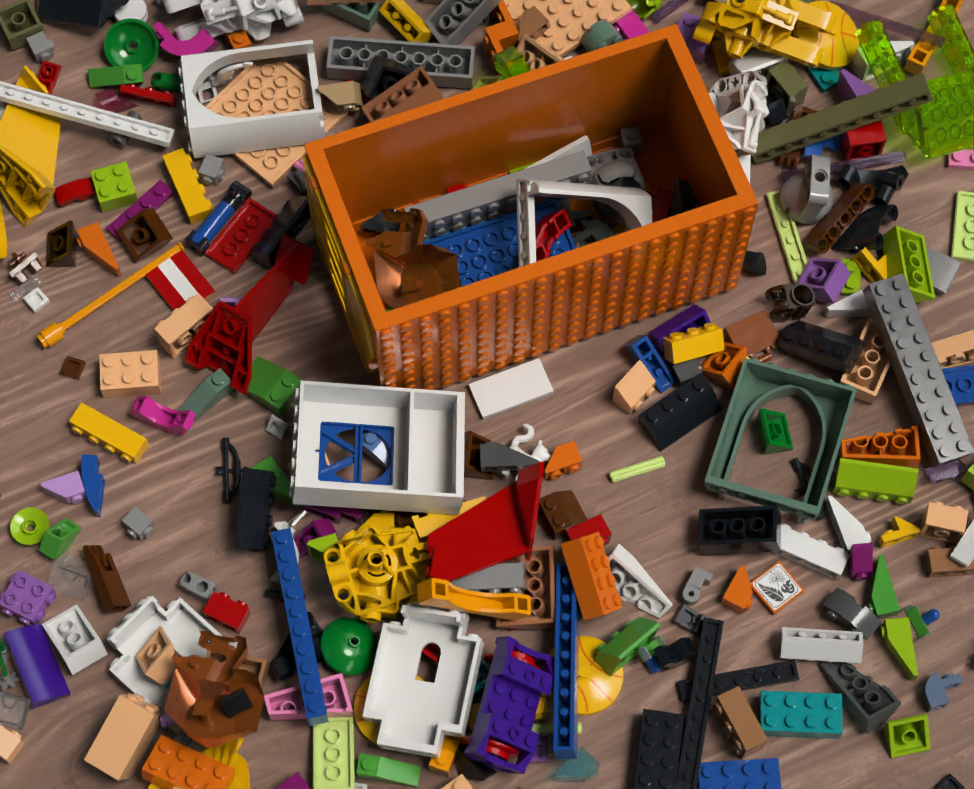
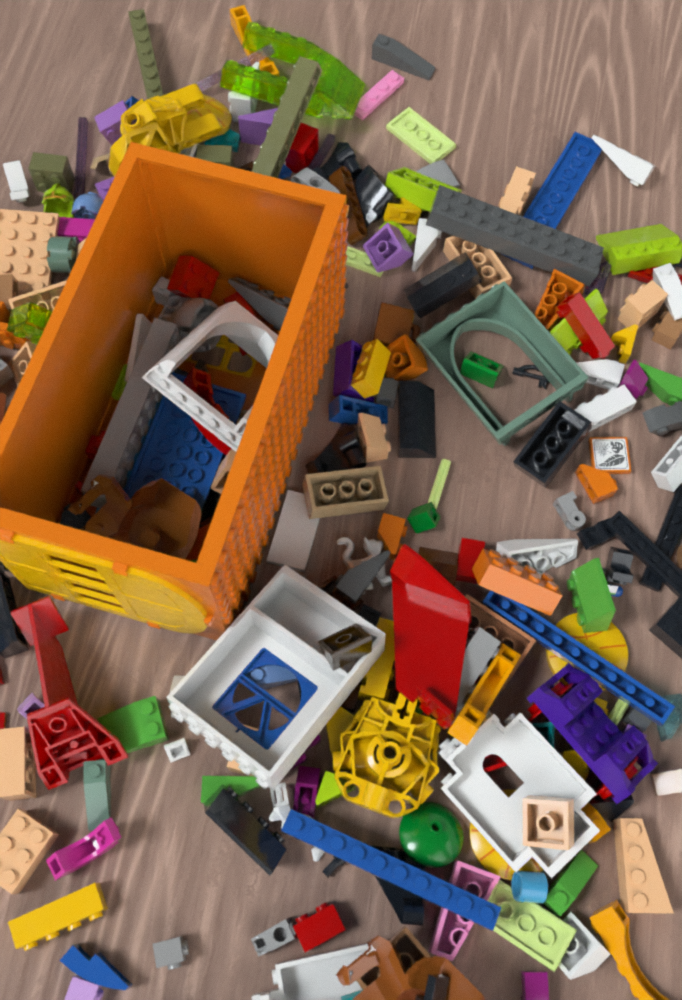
camera: 55 degrees left, 0 degrees up
(226, 446) = (188, 816): black piece -> none
(361, 737) = (529, 886): none -> dark azure piece
(413, 710) = (548, 822): none -> light nougat brick
(429, 474) = (346, 646): none -> dark brown slope
(481, 489) = (370, 614): none -> black tile
(568, 399) = (345, 492): none -> tan brick
(592, 232) = (223, 370): pearl dark grey brick -> none
(595, 376) = (340, 454): none -> black panel
(597, 476) = (423, 517): none -> green panel
(653, 152) = (192, 278): none -> red brick
(658, 19) = (87, 206): none -> medium blue cylinder
(790, 293) = (391, 269): dark brown piece -> none
(872, 484) = (585, 326): none -> red brick

